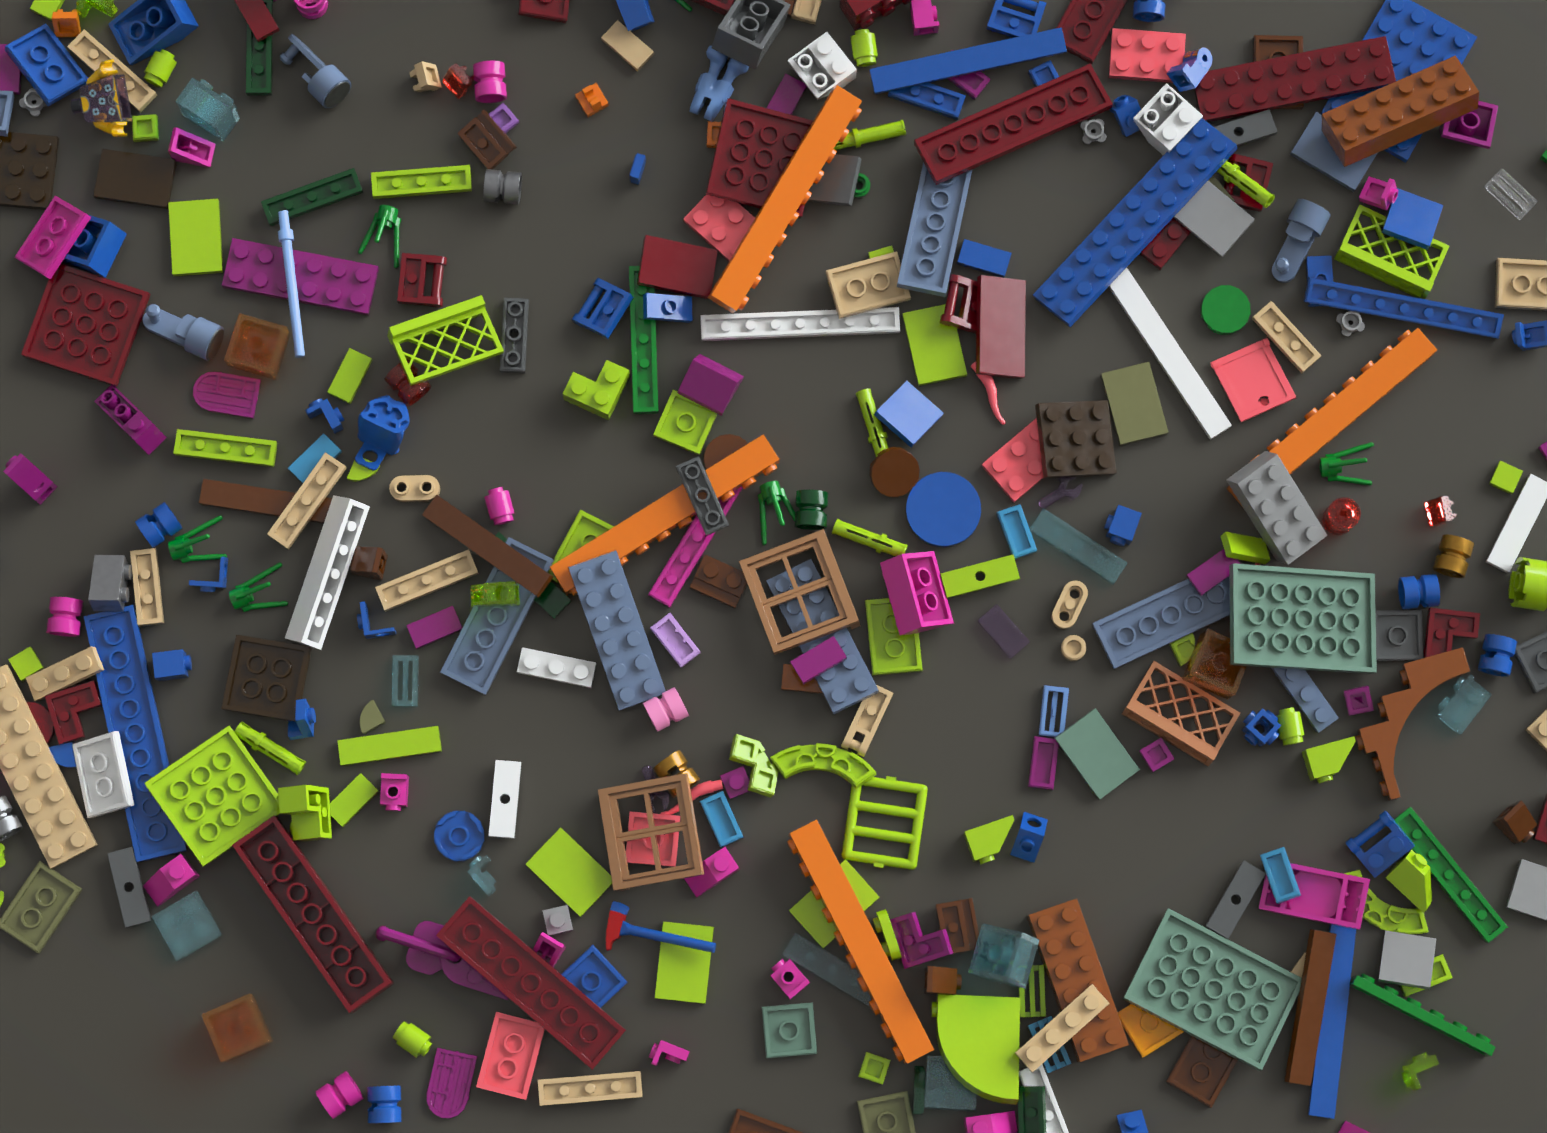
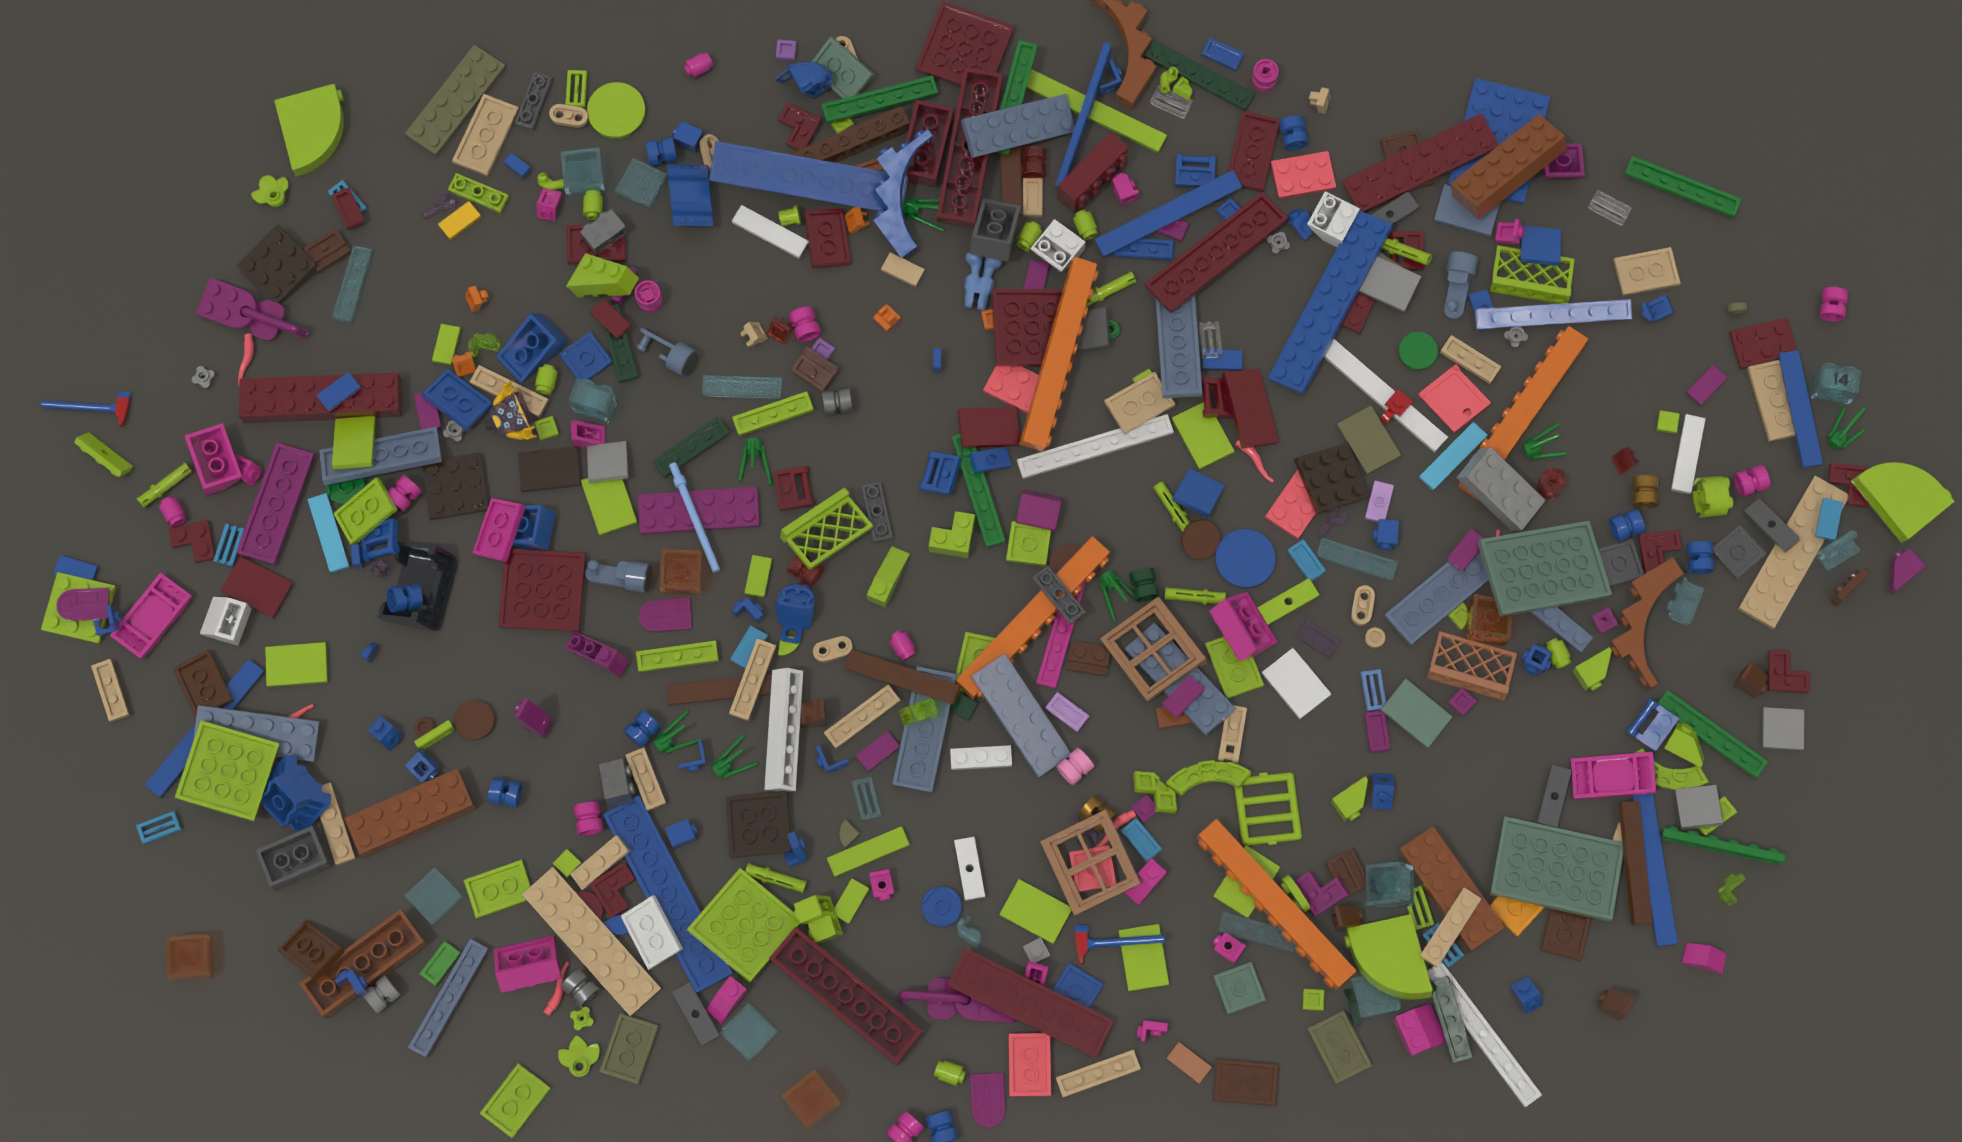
camera: 10 degrees left, 5 degrees down
(206, 188) = (607, 462): none -> light grey tile
(216, 54) = (586, 357): none -> blue tile
(394, 138) = (742, 386): none -> clear light blue tile
(505, 417) = (887, 577): none -> lime slope
(703, 1104) = (1189, 1063): none -> nougat tile
(791, 43) = (1028, 236): none -> lime brick
(962, 678) = (1296, 683): none -> white tile
(980, 213) = (1209, 327): none -> clear tile
(1125, 482) = (1379, 501): none -> lavender plate
(1180, 369) = (1396, 404): none -> red plate
(1192, 70) = (1341, 176): leg -> none
(1231, 450) = (1453, 456): none -> medium azure tile
(1245, 548) = (1485, 526): lime tile -> none
(1280, 875) = (1583, 768): dark azure tile -> none

